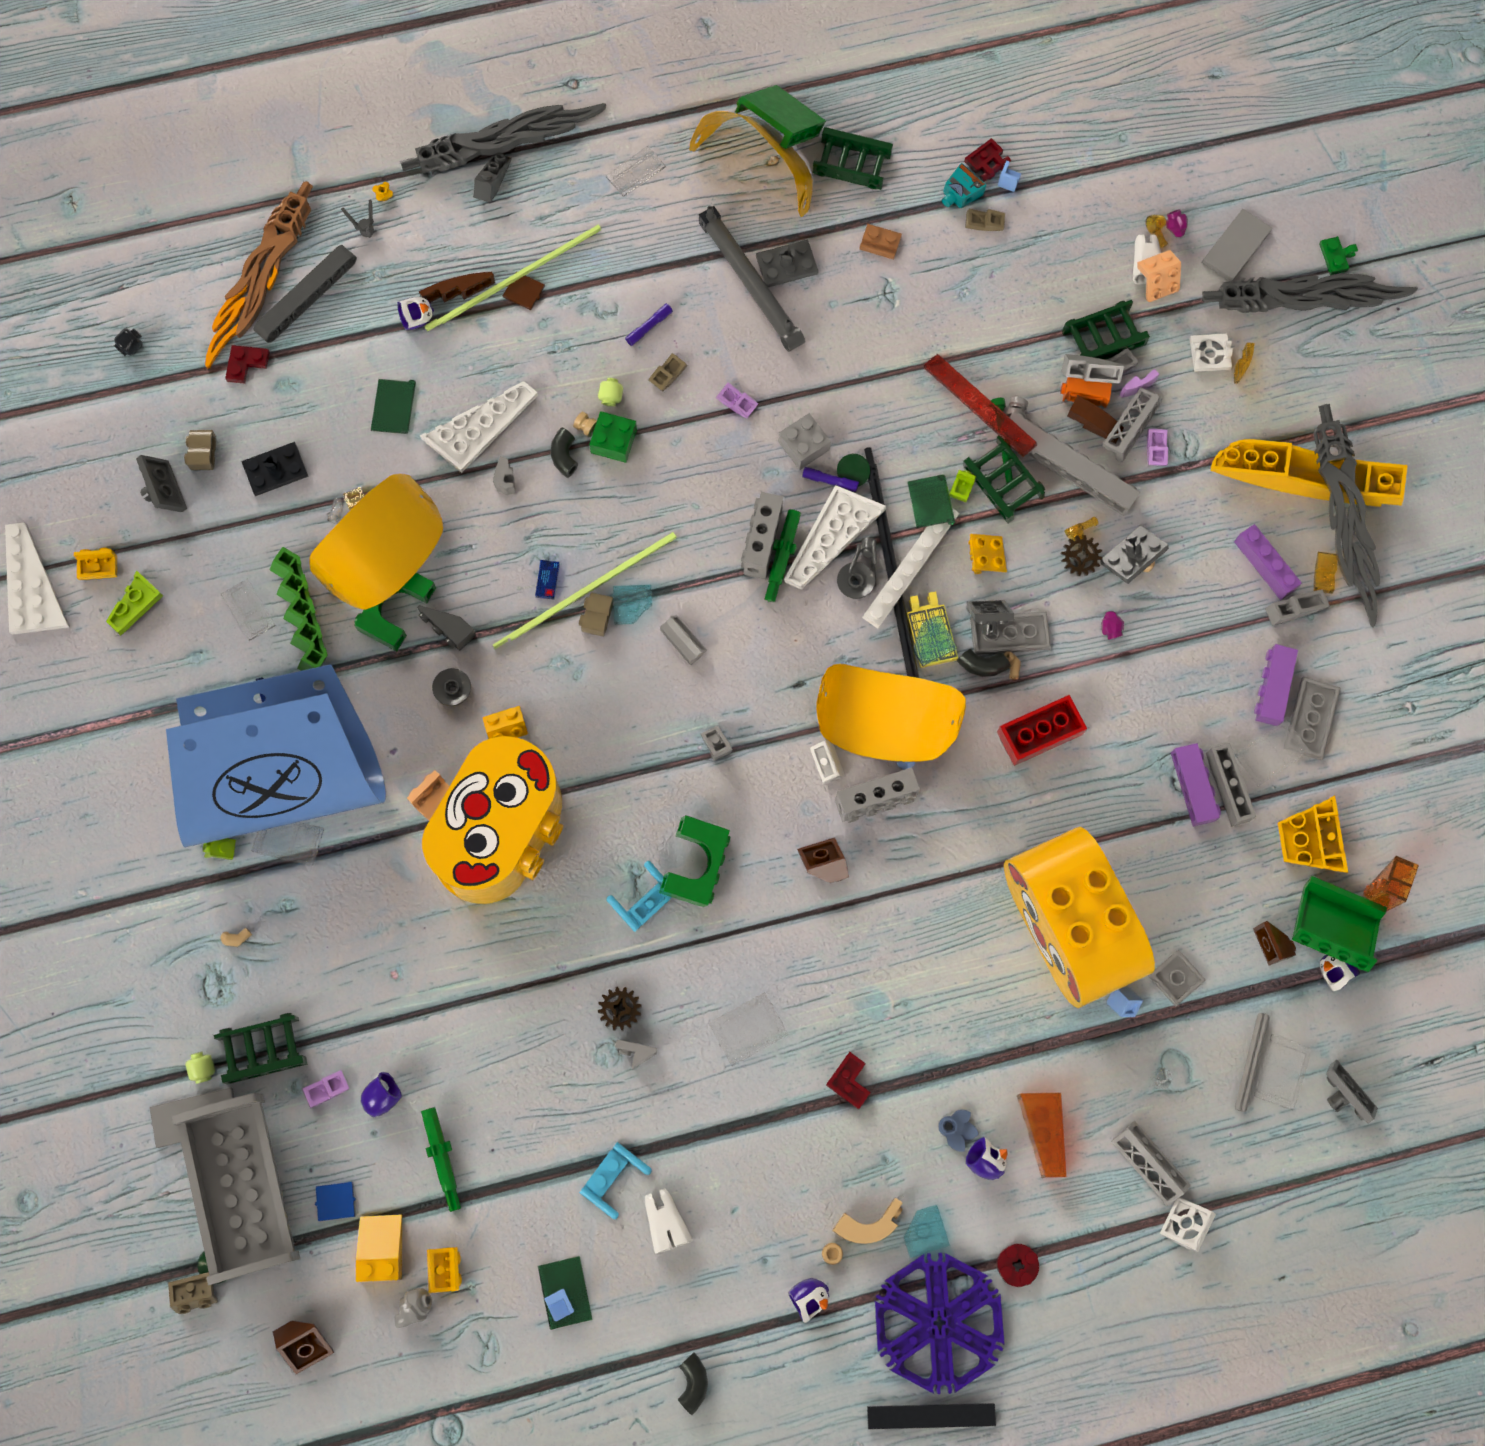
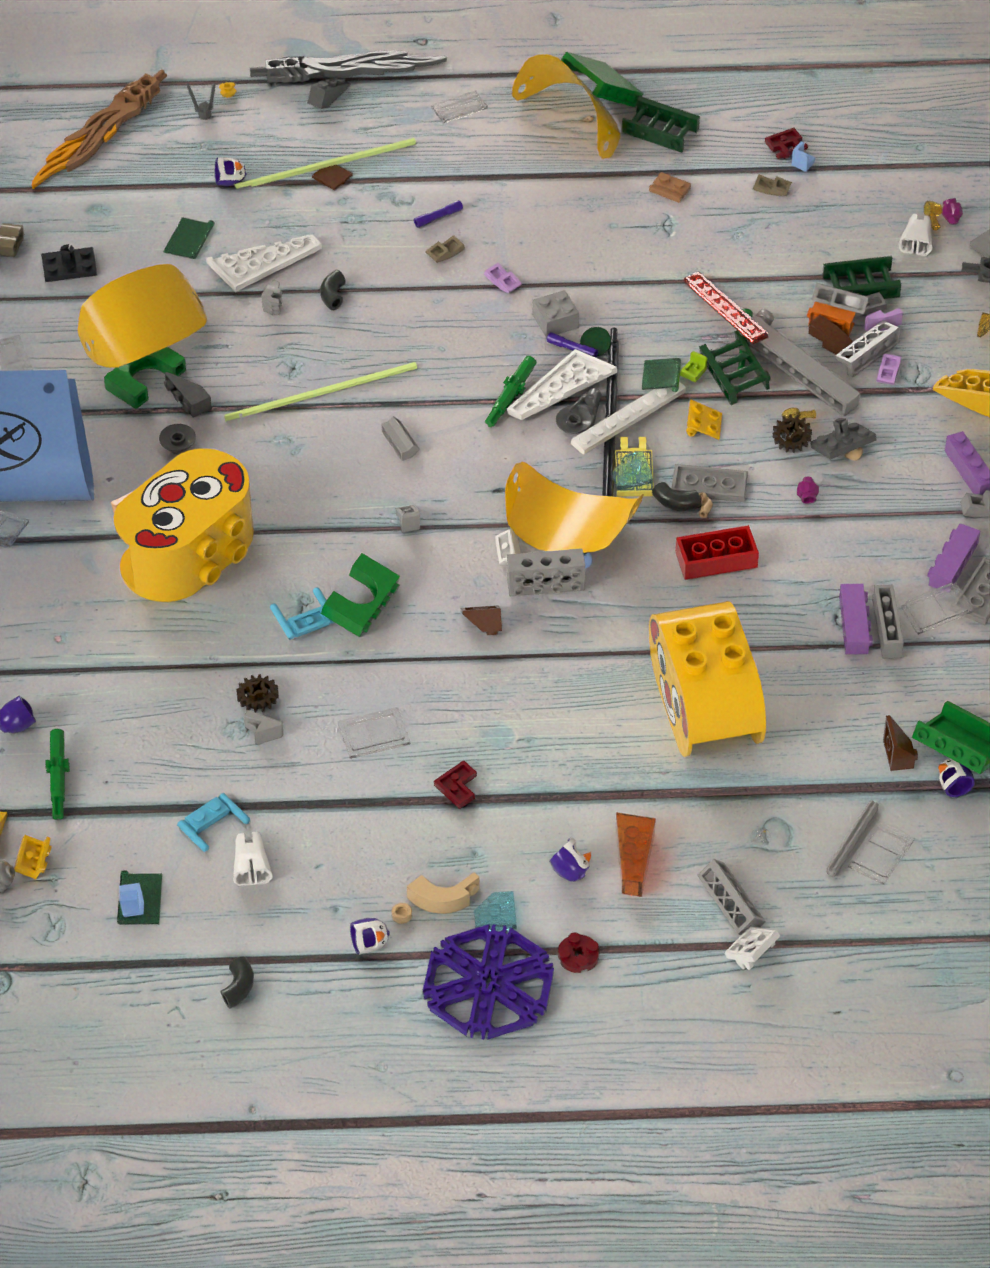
camera: 15 degrees right, 25 degrees down
(243, 357) = (67, 184): dark red plate -> none
(301, 610) = (57, 343): bright green brick -> none
(305, 293) = (135, 147): dark grey beam -> none
(462, 285) = (274, 161): reddish brown slope -> none
(547, 579) = (289, 378): clear blue tile -> none
(585, 424) = (359, 273): tan wheel -> none
(597, 614) = (326, 407): dark tan brick -> none
(610, 392) = (388, 253): yellowish green head -> none
(613, 437) = (380, 284): green brick -> none
(631, 602) = (360, 405): clear light blue plate -> none
(762, 535) = (498, 363): light grey brick -> none
(787, 263) = (578, 189): dark grey plate -> none
(790, 335) = (558, 224): dark grey piece -> none
(931, 1416) = (460, 1053): black tile -> none
(960, 1131) = (552, 840): sand blue plate -> none
(962, 187) = (757, 158): teal torso -> none
(989, 614) = (690, 457): dark grey plate -> none
(1125, 1002) = (739, 769): light blue panel -> none
(1161, 275) = (924, 243): light nougat bracket -> none
(1177, 978) = (797, 763): light grey tile -> none
(1222, 339) = (970, 320): white piece -> none
(1314, 837) = (960, 674): yellow wedge -> none
(1349, 1093) = (938, 871): dark grey plate -> none

